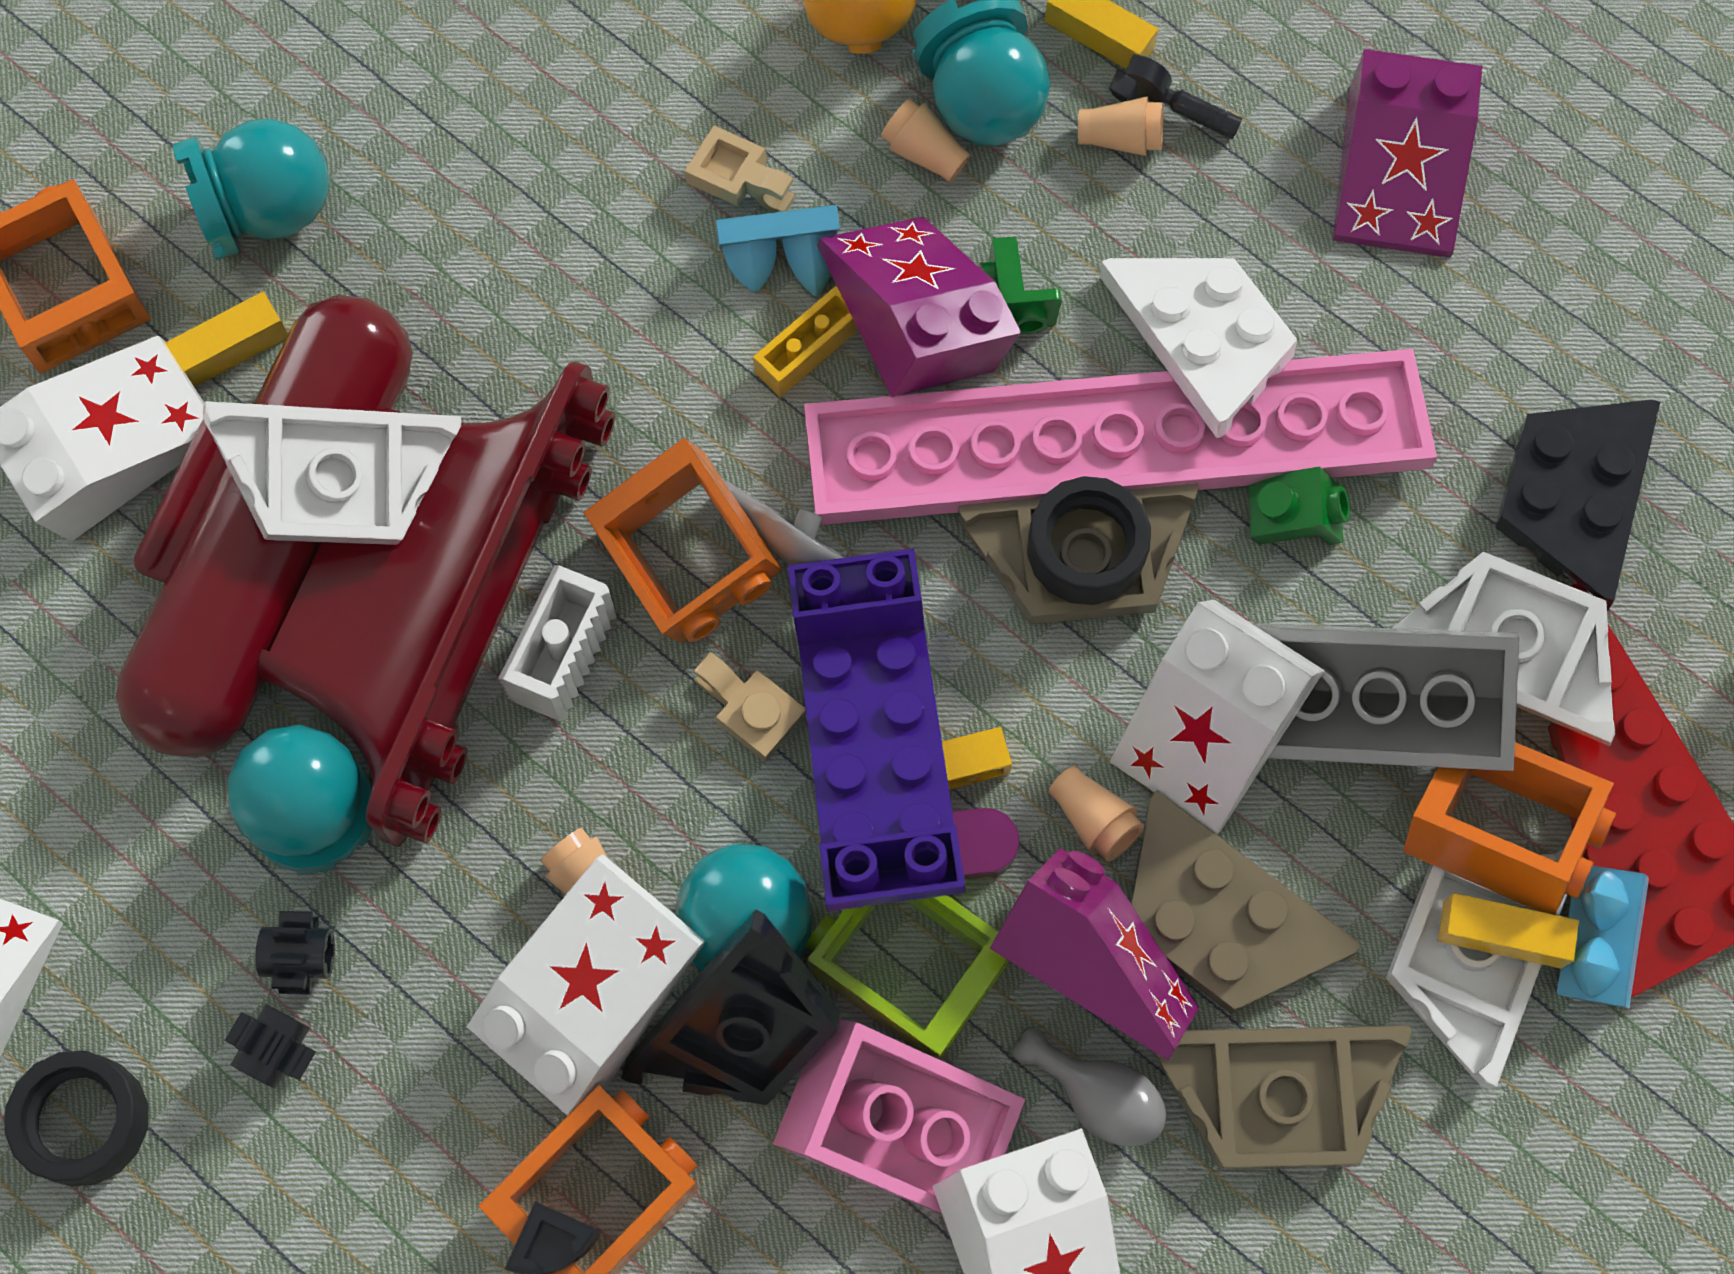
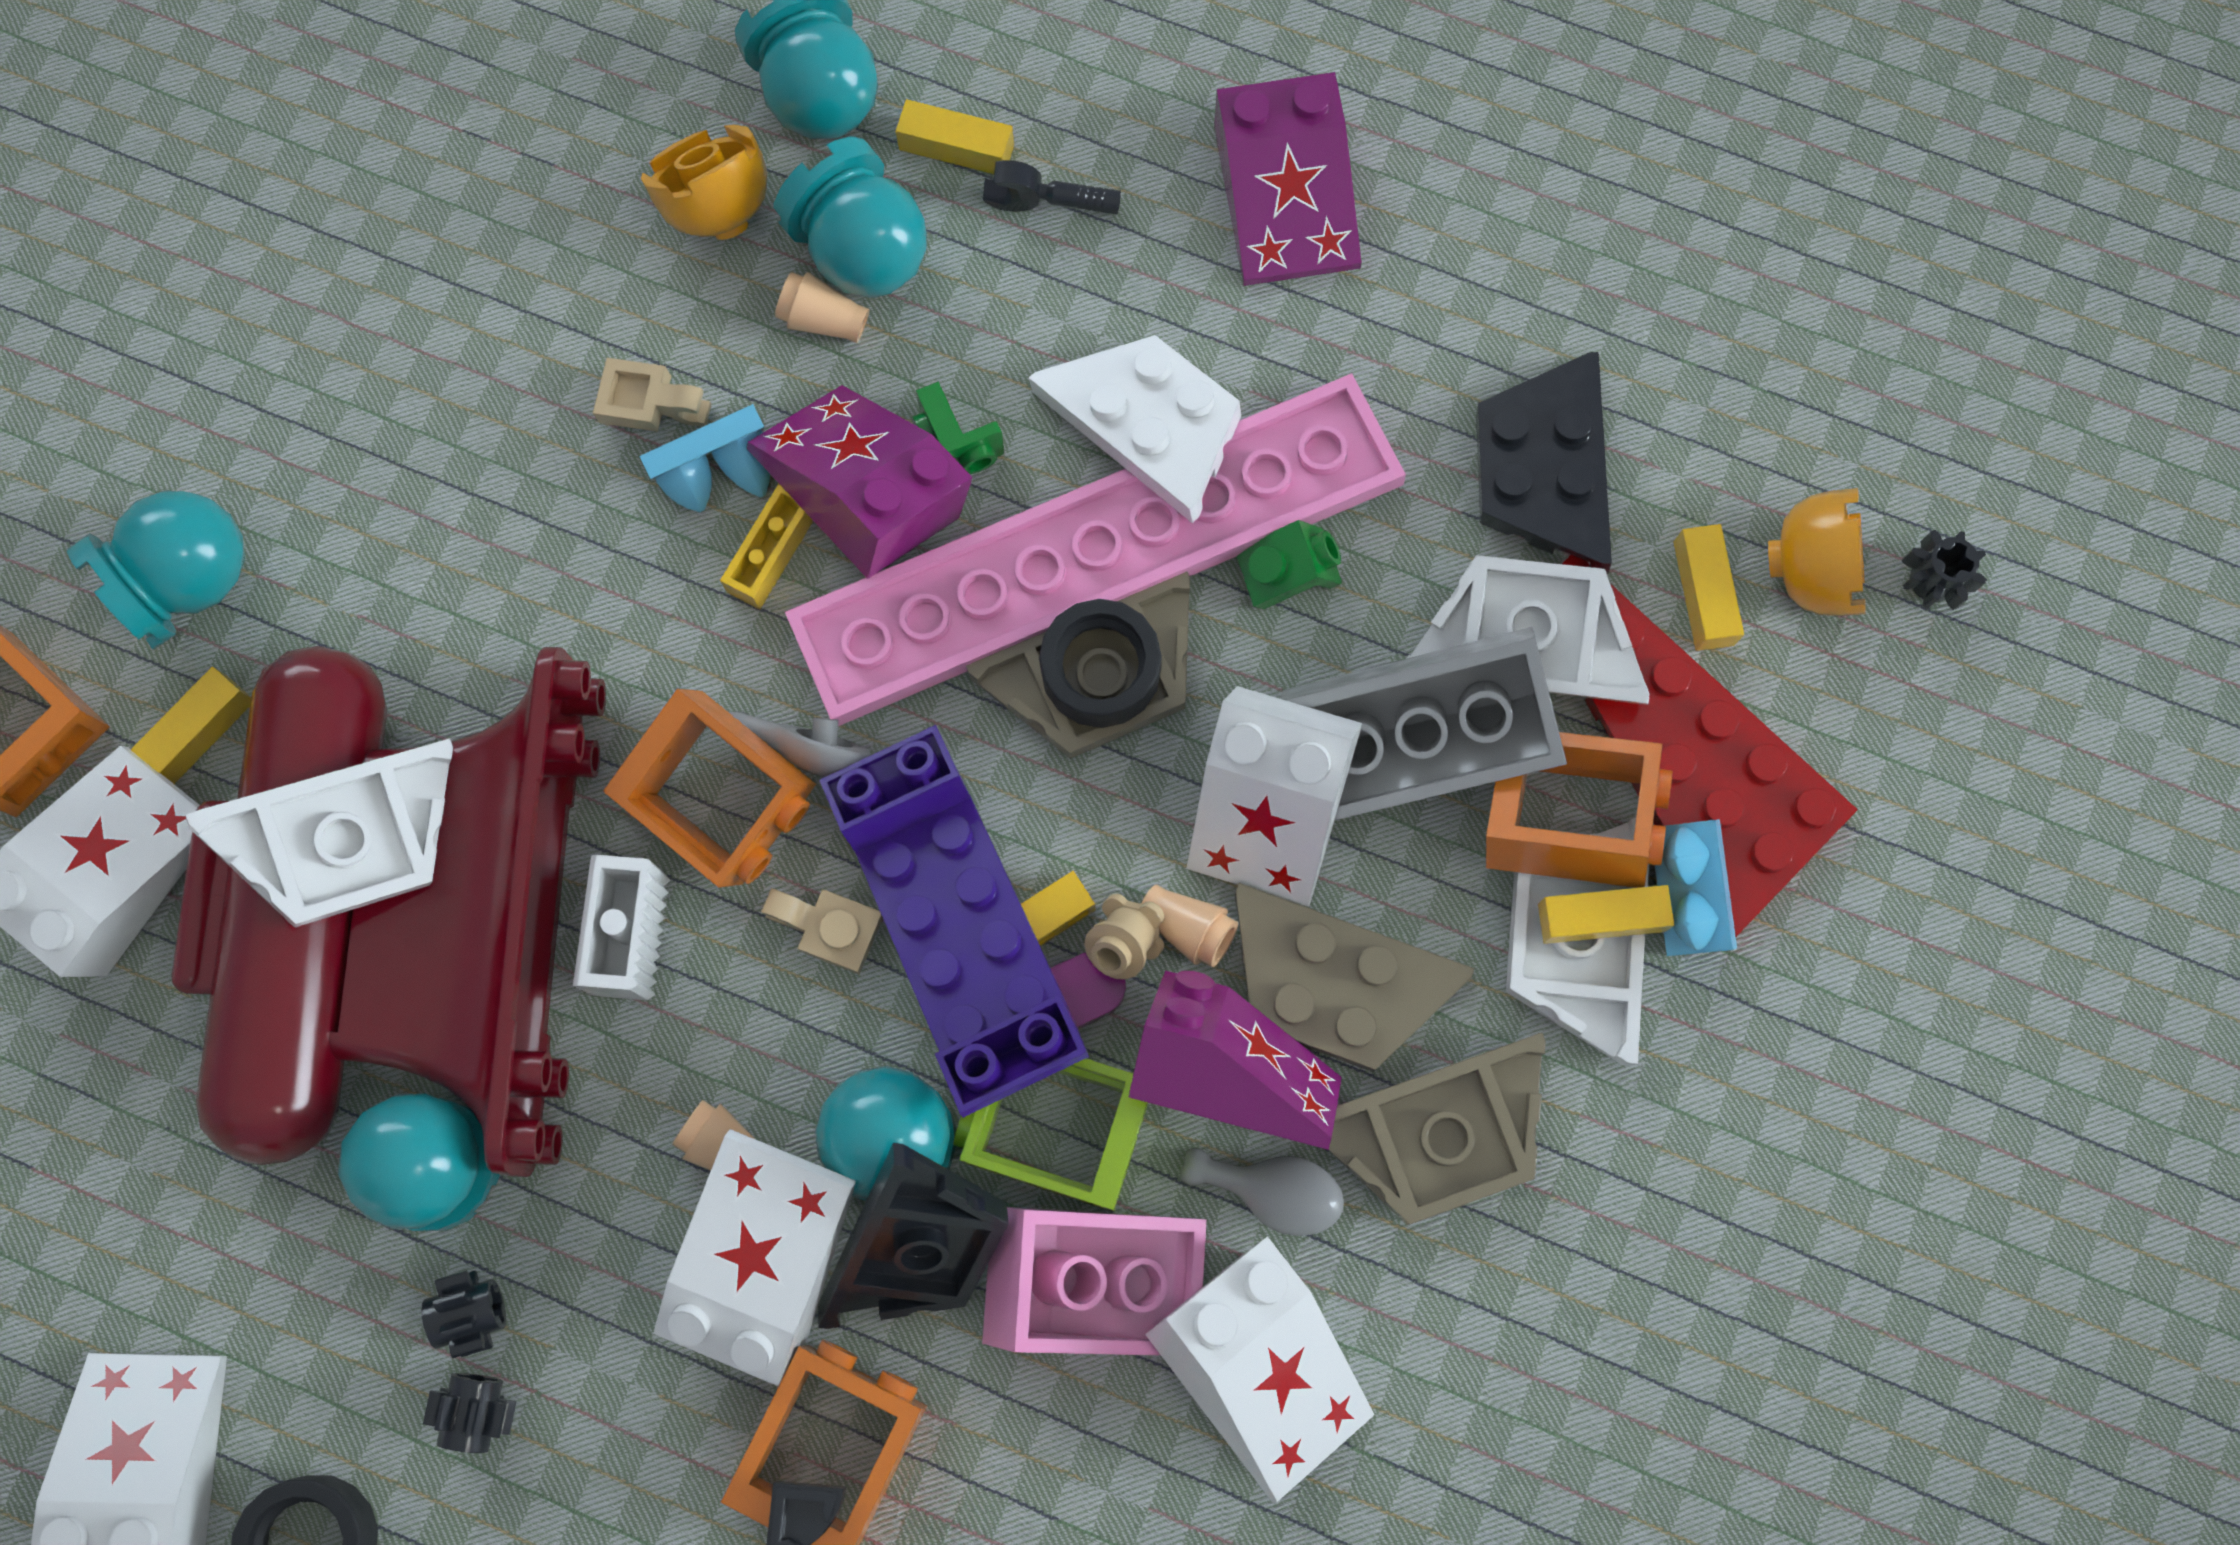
camera: 15 degrees left, 5 degrees up
(1031, 805) = (1125, 938): none -> tan brick
(1123, 126) = (1008, 235): light nougat cone -> none
(1703, 656) = (1708, 587): none -> yellow piece

